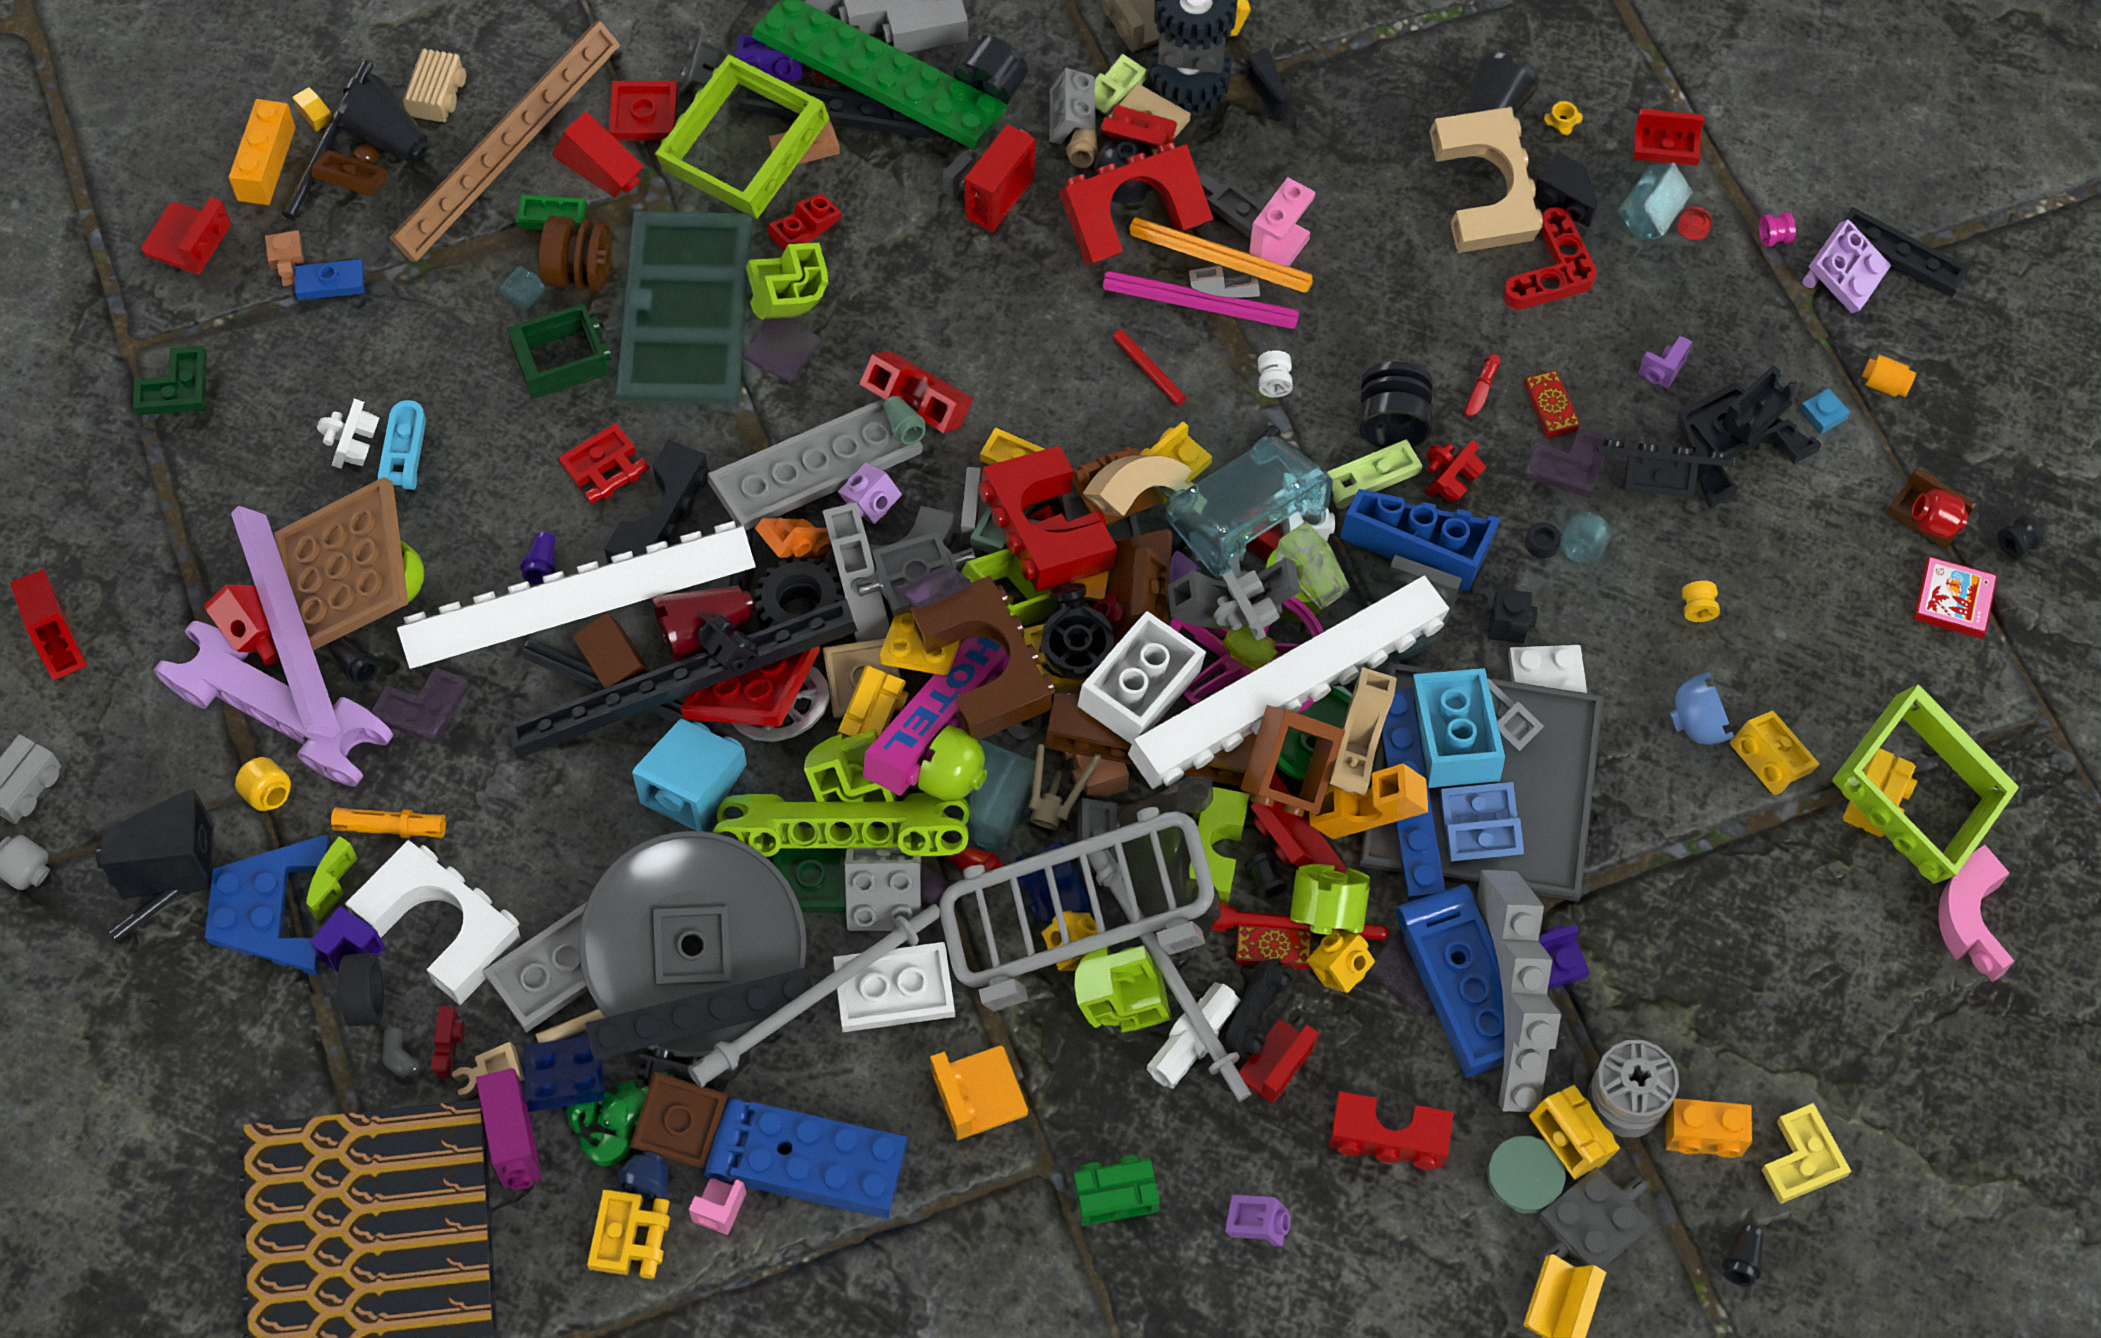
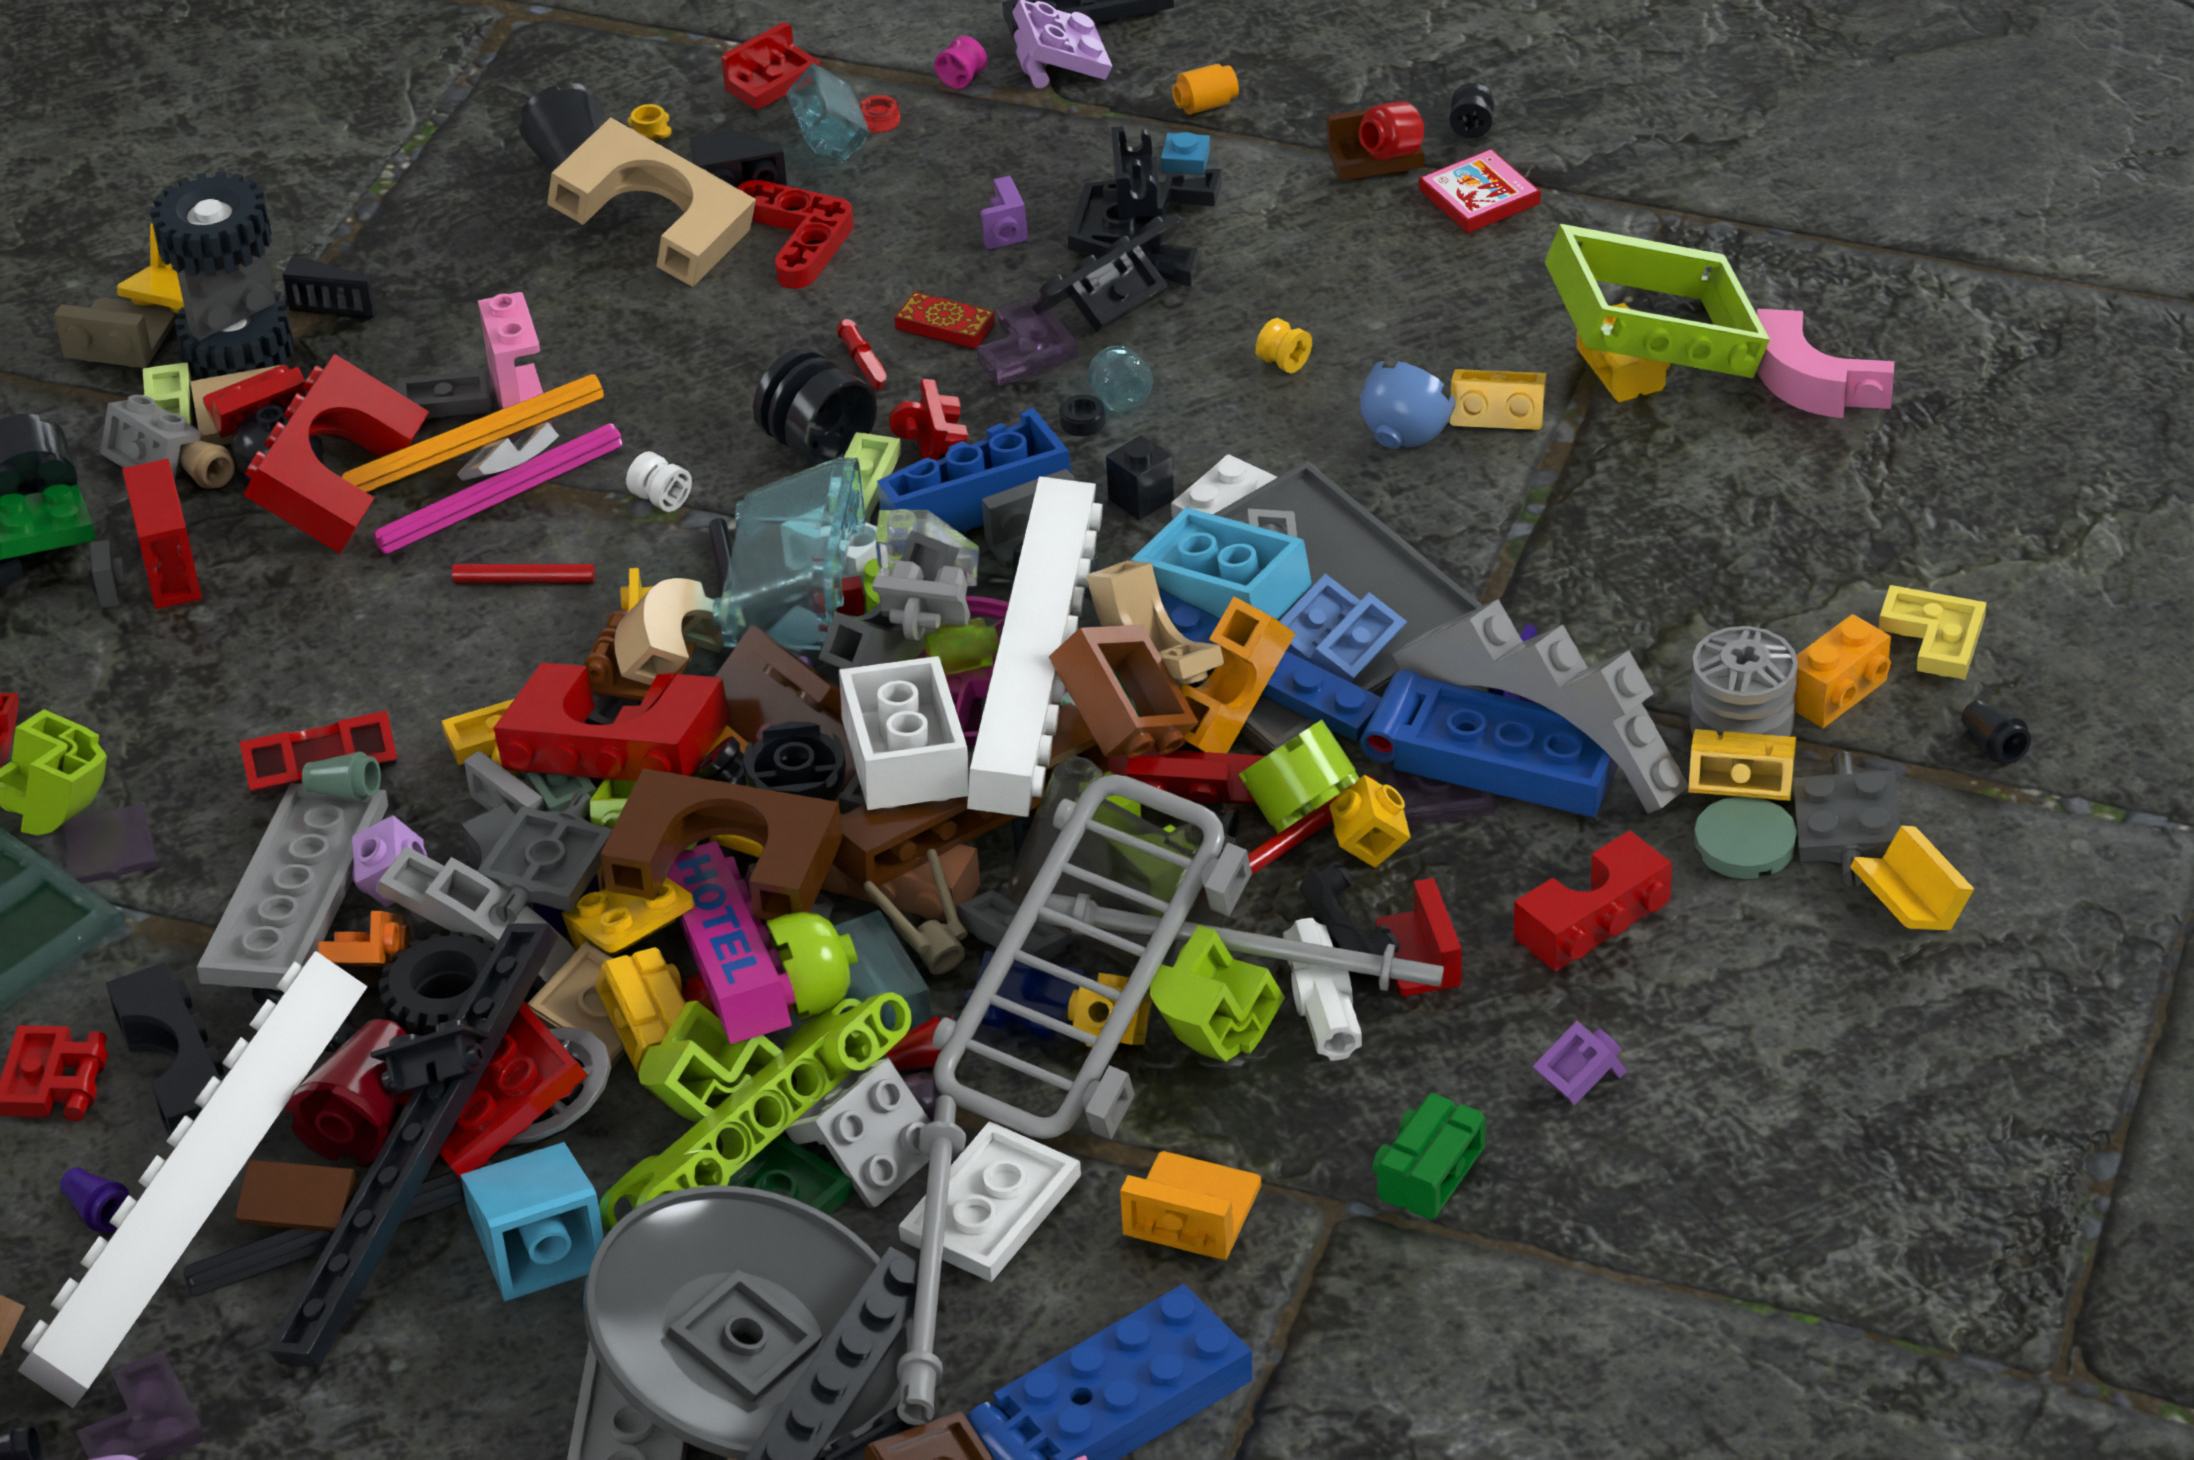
camera: 45 degrees left, 20 degrees down
(933, 586) = (594, 829): clear purple piece -> none
(1264, 943) = (1277, 881): tile -> none

